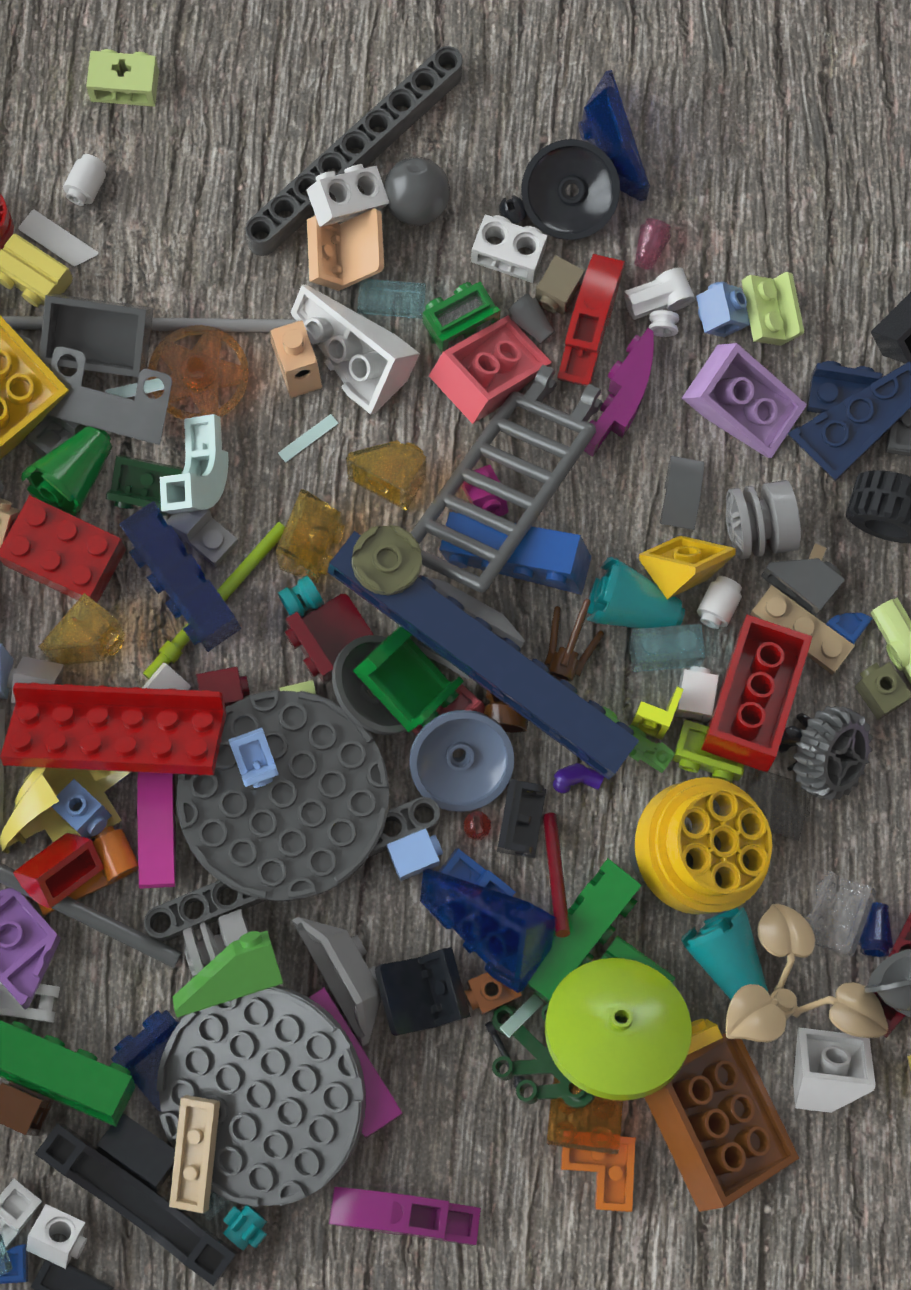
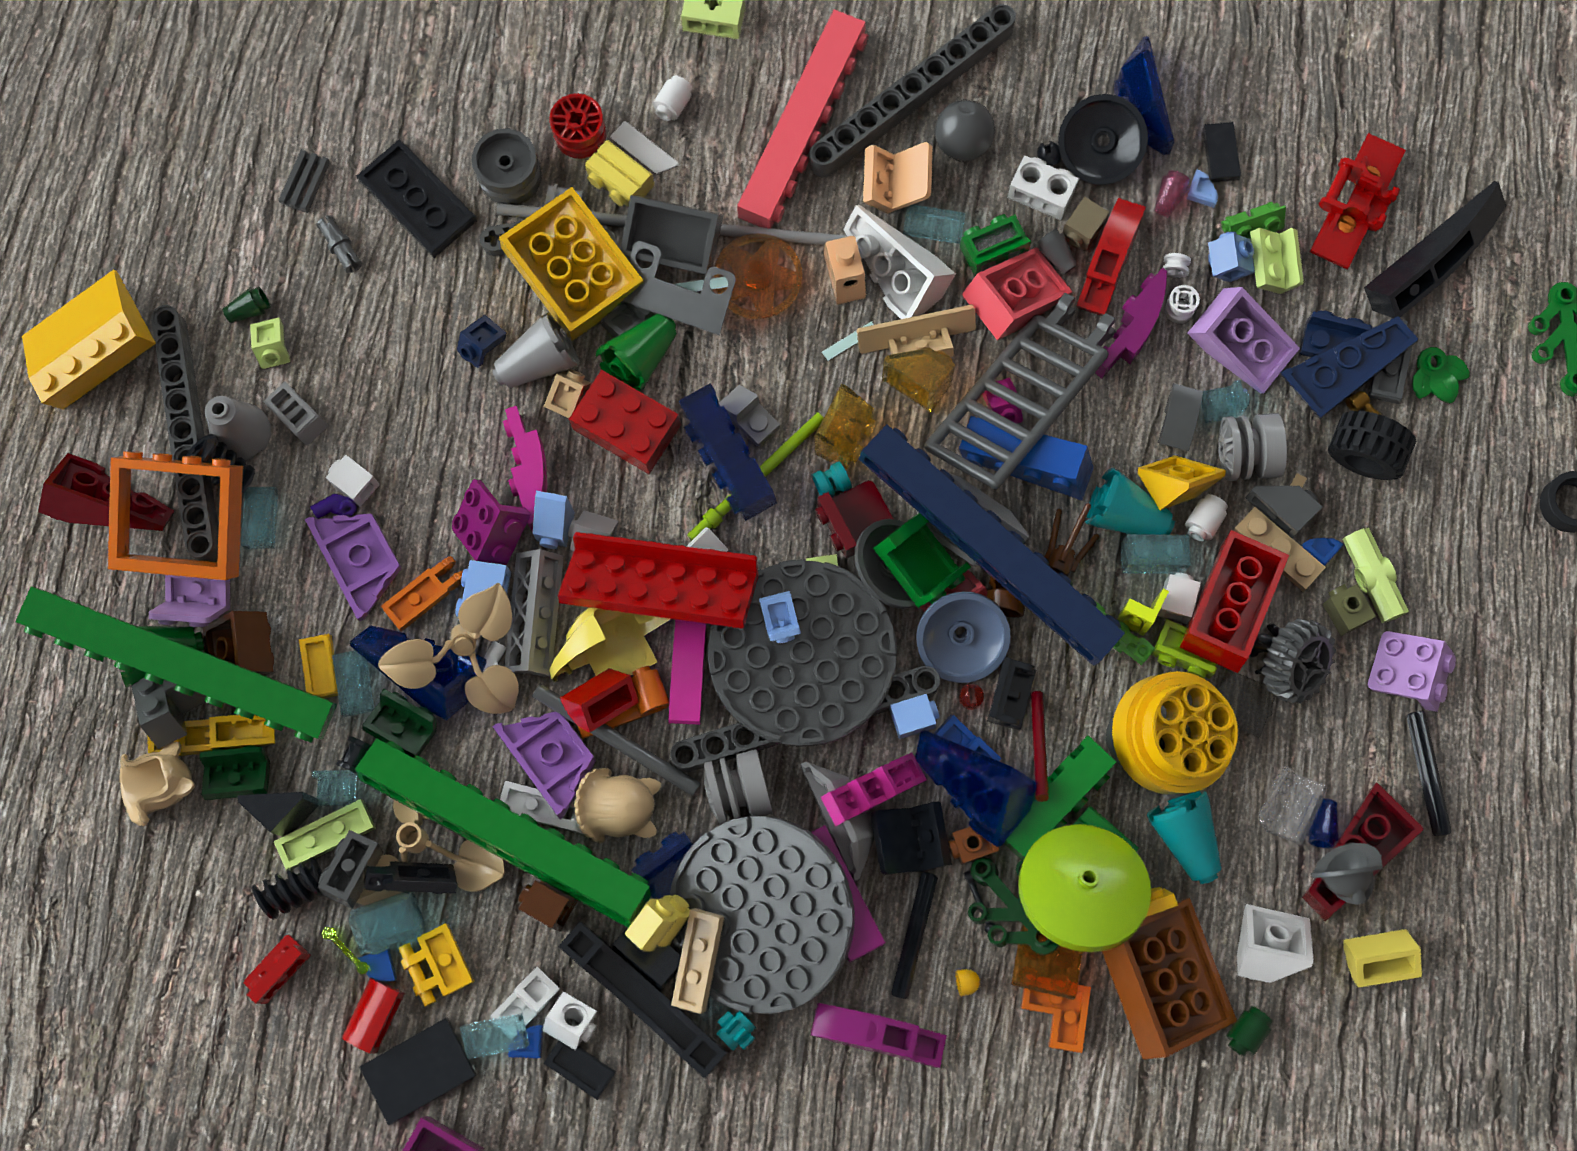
camera: 15 degrees right, 0 degrees up
(81, 810) = (623, 649): medium blue brick -> none
(83, 635) = (638, 496): clear yellow slope -> none
(86, 987) = (615, 805): none -> tan hair
(138, 482) = (701, 366): dark green bracket -> none
(146, 1115) = (658, 922): none -> light yellow brick
(204, 469) = (756, 361): light aqua arch -> none
(226, 681) = (761, 547): dark red brick -> none
(233, 194) = (802, 119): none -> coral brick
(237, 971) = (749, 803): bright green slope -> none
(349, 199) = (904, 131): white brick -> none
(375, 941) = (873, 788): none -> dark pink slope
(384, 422) = (918, 332): none -> tan bracket
(386, 560) = (913, 452): olive tile -> none
(435, 1100) = (914, 935): none -> black axle
(498, 1145) = (967, 981): none -> yellow hinge
(521, 1015) = (997, 868): light aqua piece -> none
(575, 774) = (1063, 659): dark purple arm -> none
(667, 291) = (1182, 237): white piece -> none
(668, 372) = (1178, 310): none -> white wheel
(686, 237) = (1202, 190): none -> light blue tile
(703, 193) = (1221, 152): none -> black tile
(729, 472) = (1225, 402): none -> clear light blue bracket
(758, 261) = (1267, 217): none -> bright green hinge
(763, 1017) = (1217, 890): tan plant -> none
(813, 1169) = (1249, 1031): none -> dark green brick
(866, 240) = (1367, 204): none -> red piece
(877, 457) = (1360, 400): none -> pearl gold hand

